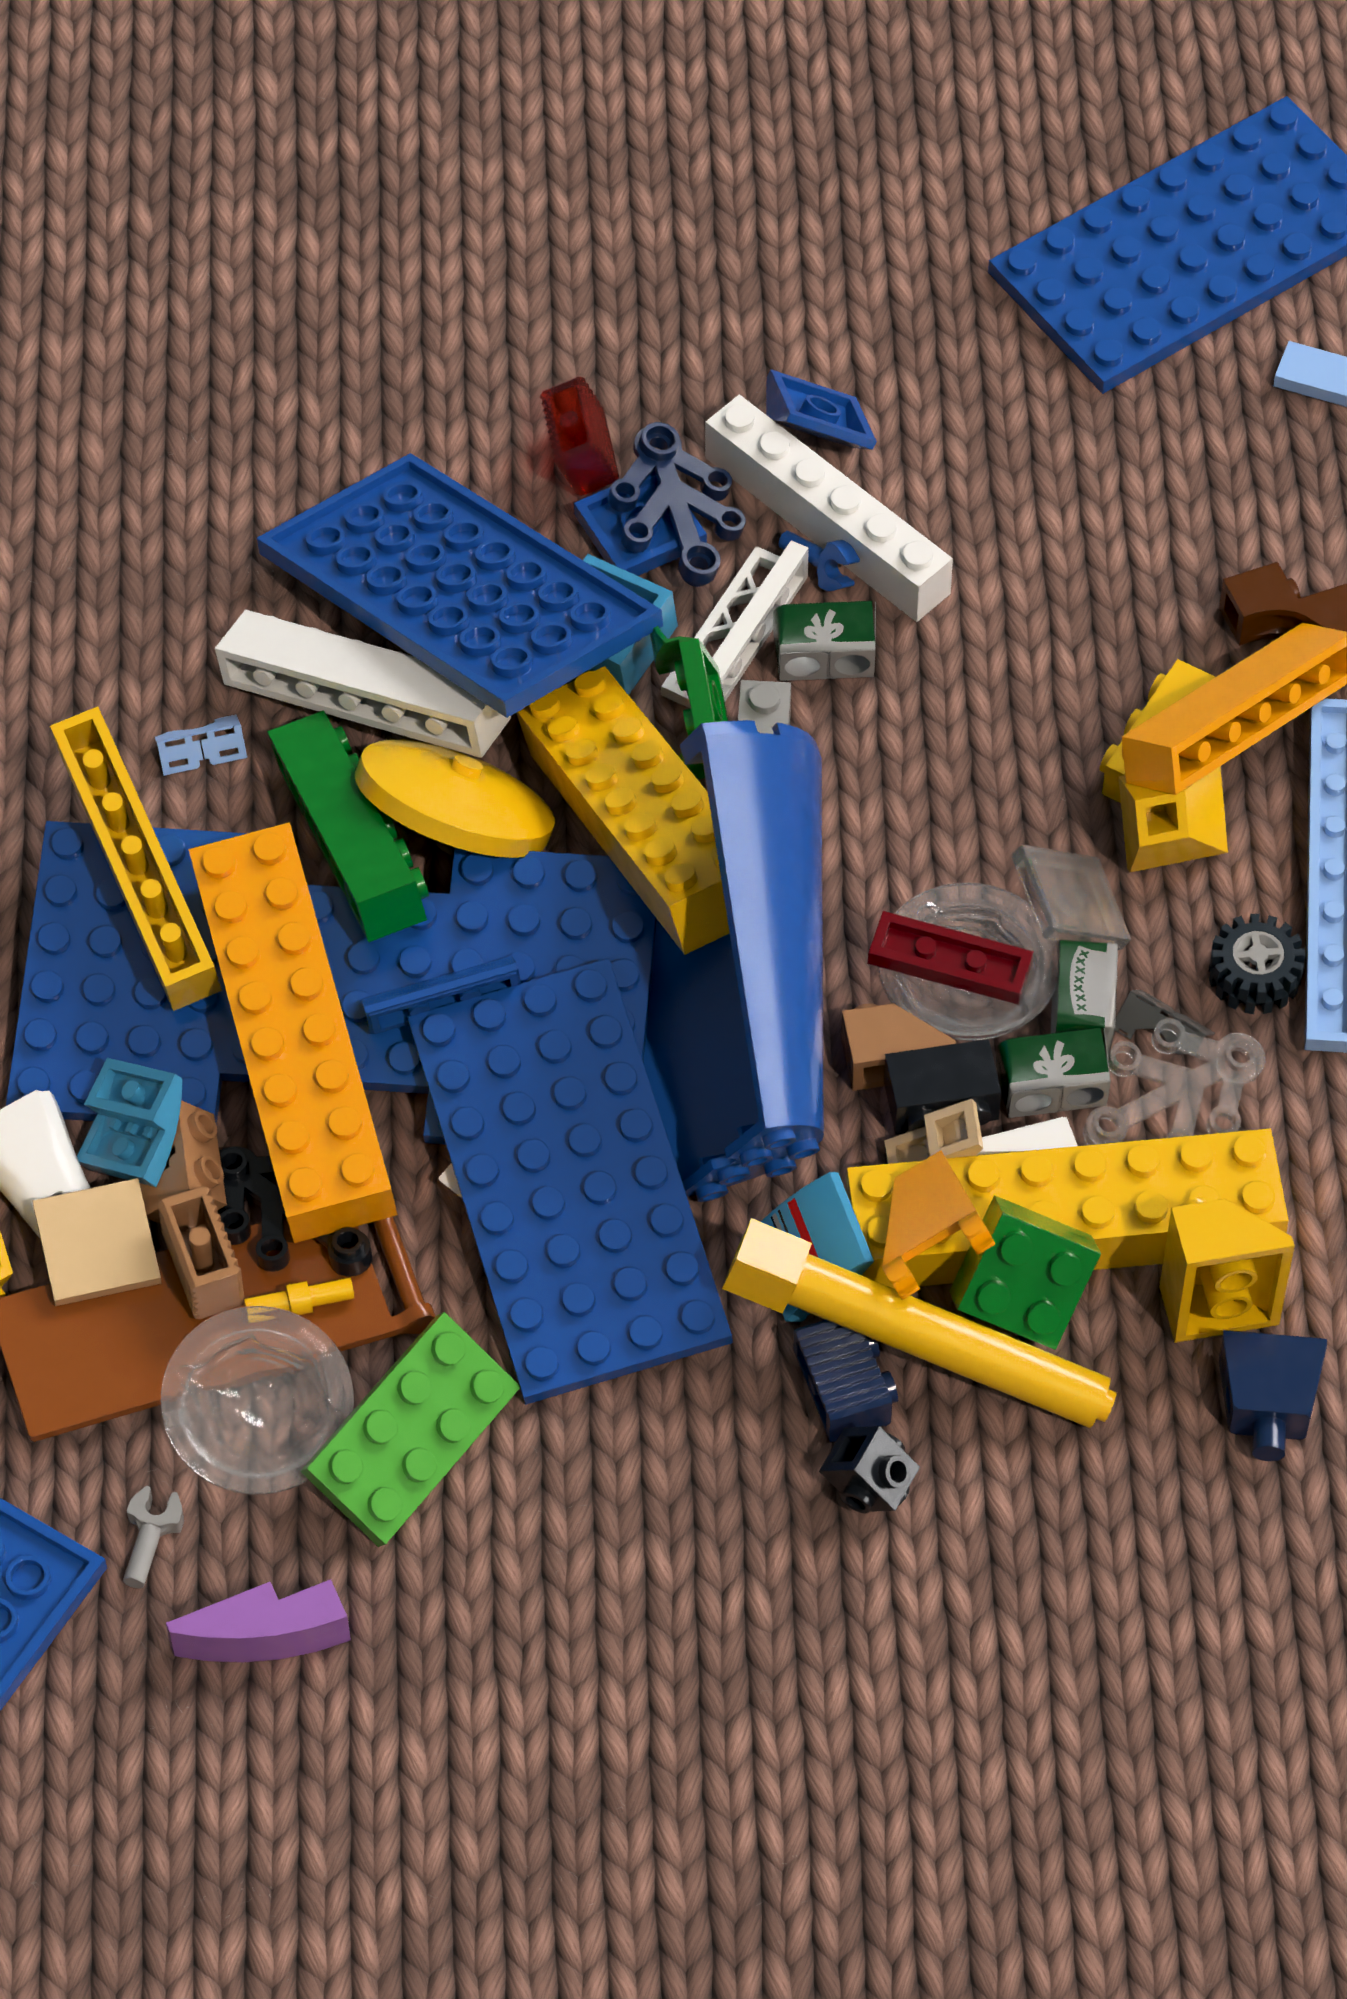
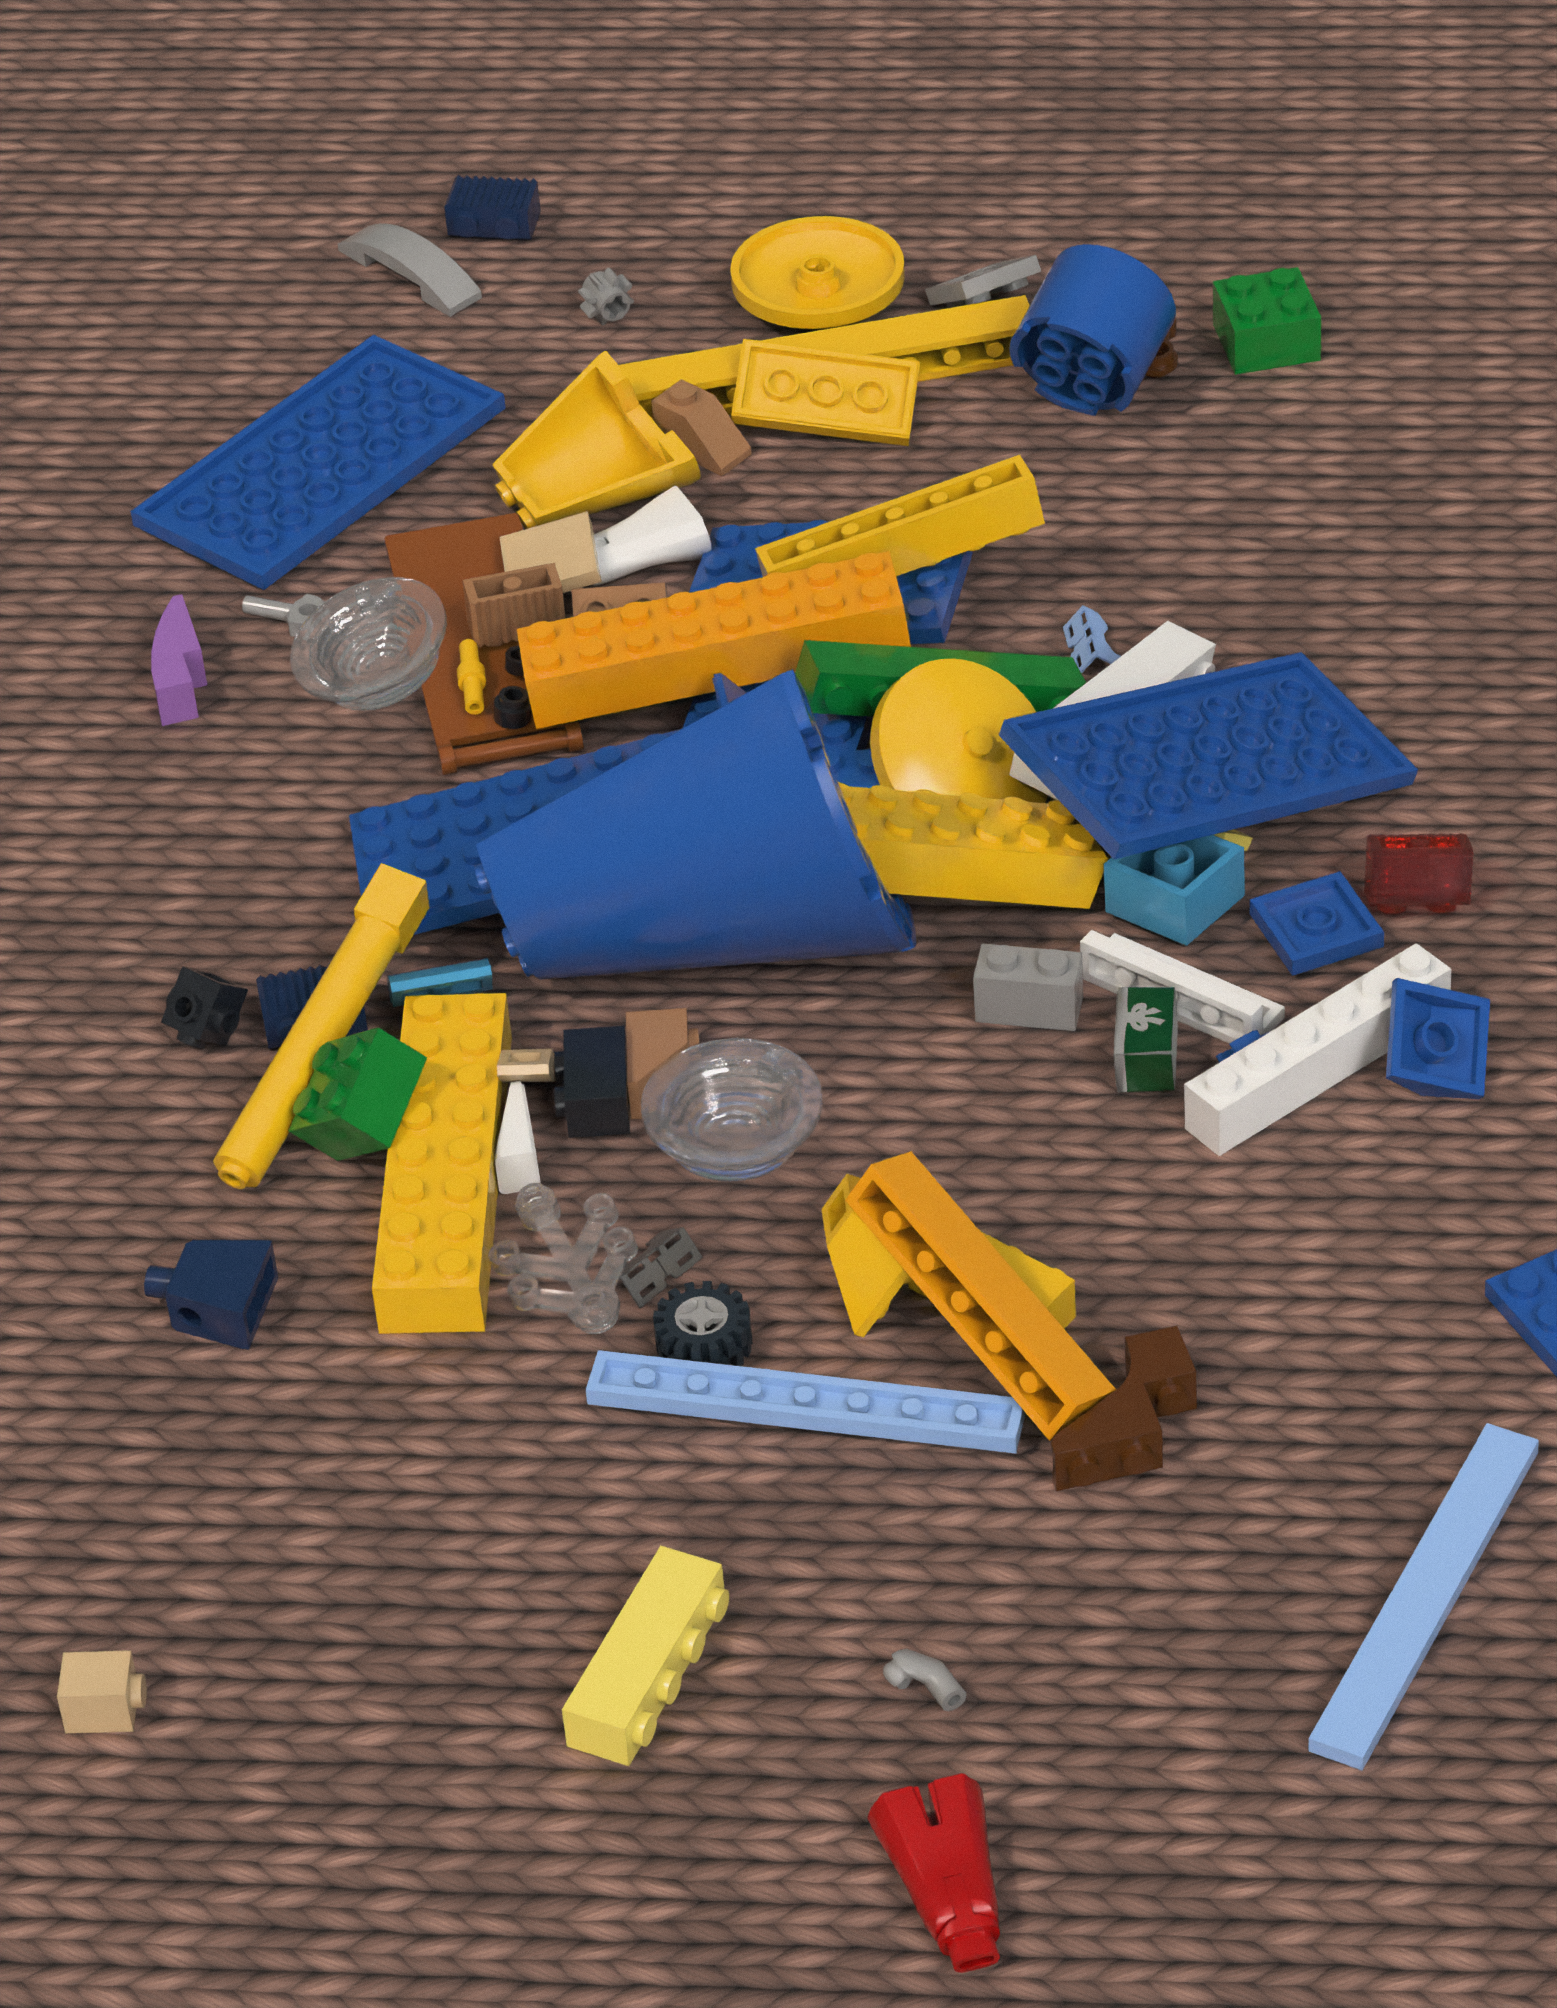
camera: 100 degrees right, 15 degrees down
(133, 1121) = (658, 568): dark azure slope -> none
(410, 1429) = (329, 739): bright green plate -> none
(678, 499) = (1328, 931): dark blue plant -> none
(695, 674) = (1043, 899): green piece -> none
(925, 1210) = (402, 1005): light orange flag -> none
(950, 957) = (720, 1072): dark red plate -> none
(1054, 1072) = (598, 1160): piece -> none
(1070, 896) = (790, 1182): clear tile -> none
(1086, 988) = (683, 1191): piece -> none
(1222, 1270) = (323, 1219): yellow slope -> none

